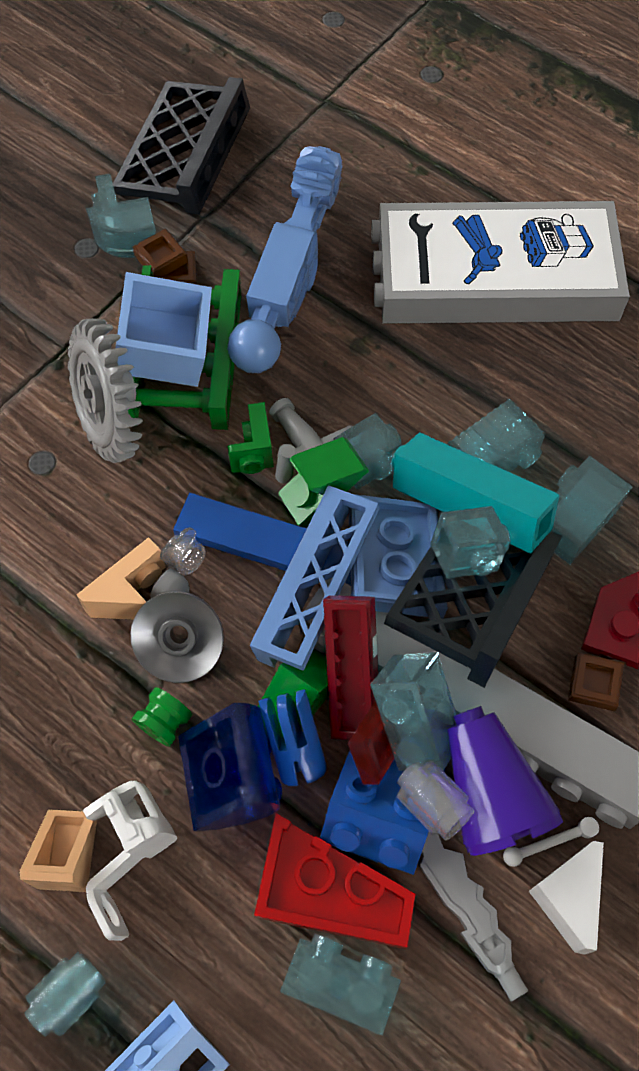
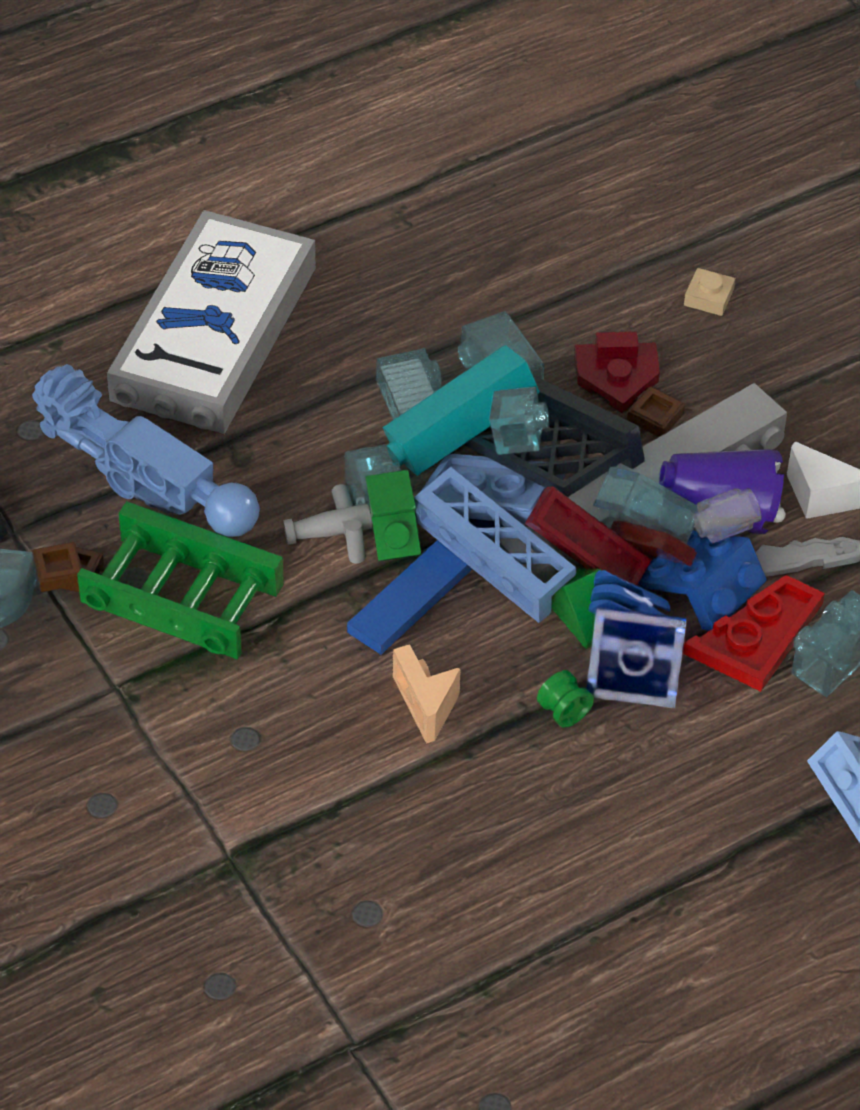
camera: 70 degrees left, 15 degrees down
(61, 852) = (658, 799): light nougat slope -> none
(64, 995) = (777, 824): clear light blue brick -> none
(103, 390) = (224, 609): light grey gear -> none
(140, 839) = (671, 728): white piece -> none
(162, 651) = (507, 659): flat silver dish -> none
(164, 328) = (187, 562): light blue piece -> none
(170, 581) = (441, 659): light grey hinge -> none
(183, 552) = (411, 635): clear plate -> none
(256, 450) = (319, 553): green bracket -> none

